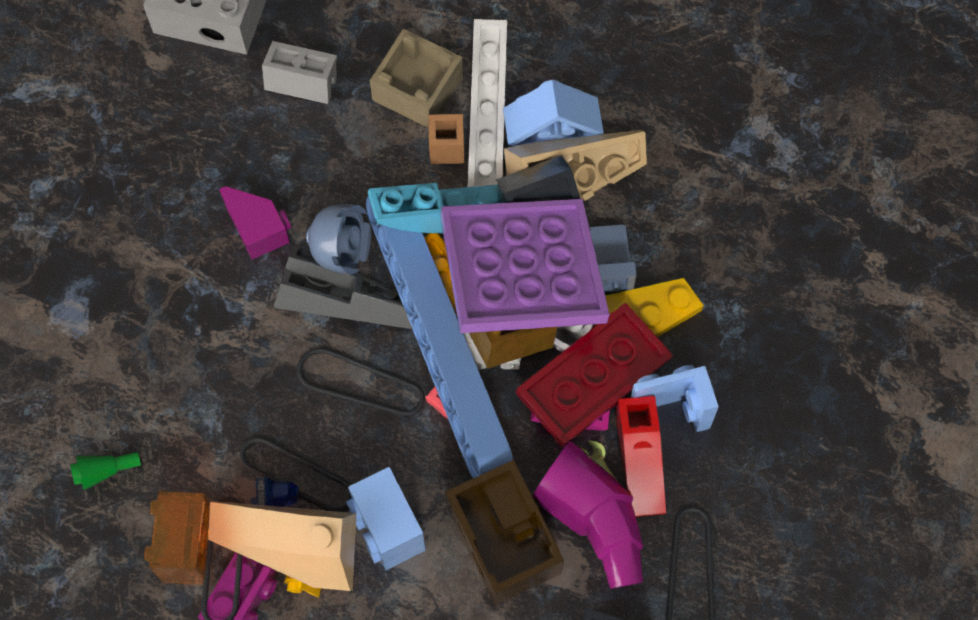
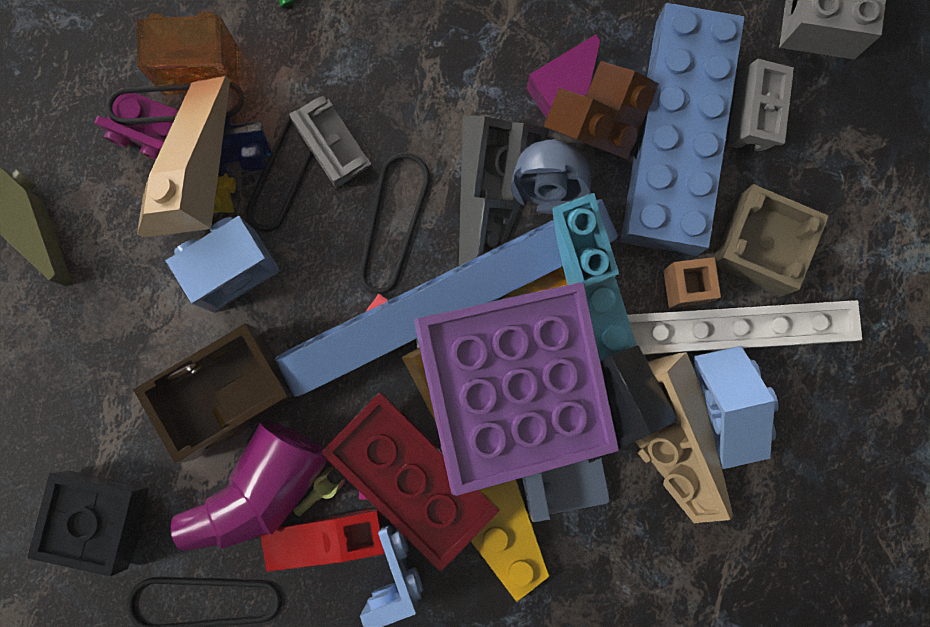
camera: 80 degrees right, 15 degrees up
(281, 427) = (330, 141): none -> light grey hinge
(290, 184) = (608, 113): none -> reddish brown brick
(311, 133) = (683, 131): none -> medium blue brick

